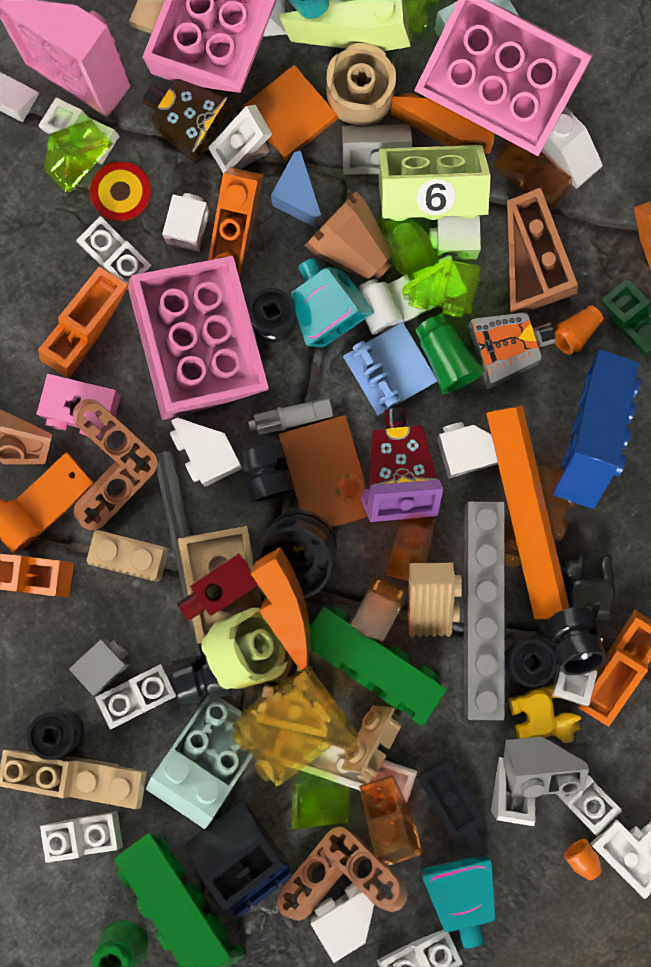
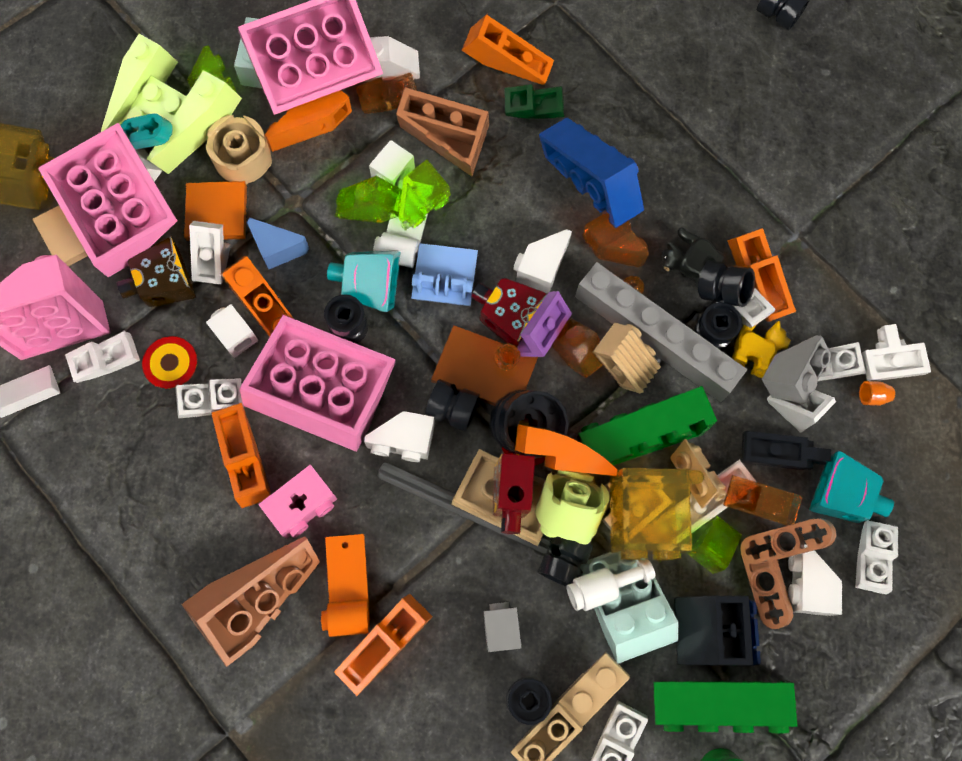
camera: 60 degrees left, 10 degrees down
(74, 152) = (116, 370): clear neon green slope -> none
(122, 468) = (369, 503): nougat beam -> none
(127, 556) = (436, 547): tan brick -> none
(135, 696) = (542, 622): white slope -> none
(196, 729) = (603, 586): none -> white piece
(291, 416) = (425, 362): light grey piece -> none
(352, 241) = (338, 231): nougat cone -> none
(363, 143) = (290, 174): light grey panel -> none
(378, 609) = (609, 394): clear orange slope -> none
(433, 182) = (344, 150): yellowish green brick -> none
(447, 354) = (465, 229): green plant -> none
(508, 345) = (489, 189): torso -> none
(528, 511) = (615, 251): orange tile -> none
(576, 330) = (514, 142): orange cone -> none

